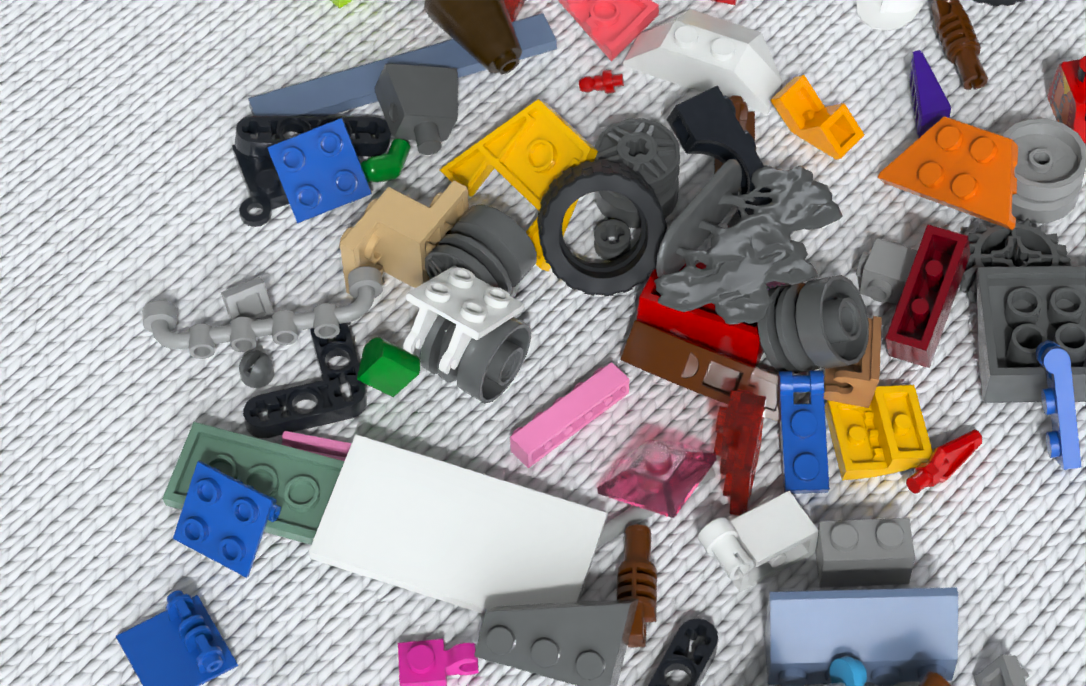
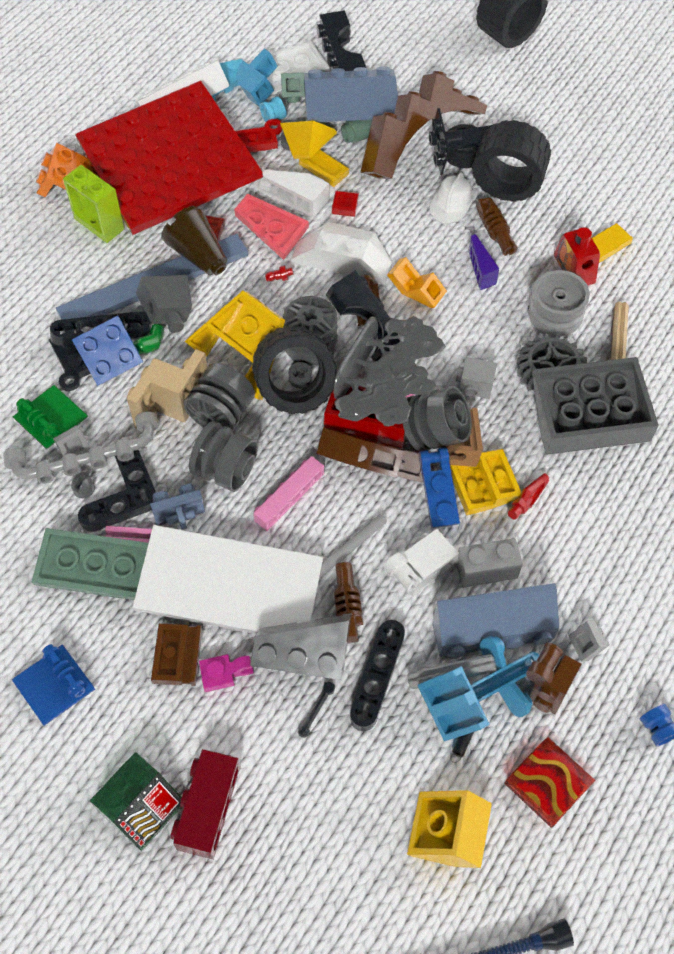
camera: 10 degrees left, 5 degrees up
(217, 259) = (48, 415): none -> green hinge
(224, 518) = (74, 591): blue hinge -> none
(365, 630) = (176, 654): none -> reddish brown plate
(387, 366) = (168, 475): green brick -> none
(396, 416) = (177, 508): none -> sand blue hips
(464, 301) = (214, 430): white plate -> none
(657, 476) = (351, 528): clear pink slope -> none
(739, 446) = (400, 502): clear red plate -> none
(928, 296) = (504, 391): dark red brick -> none
(960, 170) = (511, 307): orange wing -> none
(1060, 404) = (597, 452): plate -> none

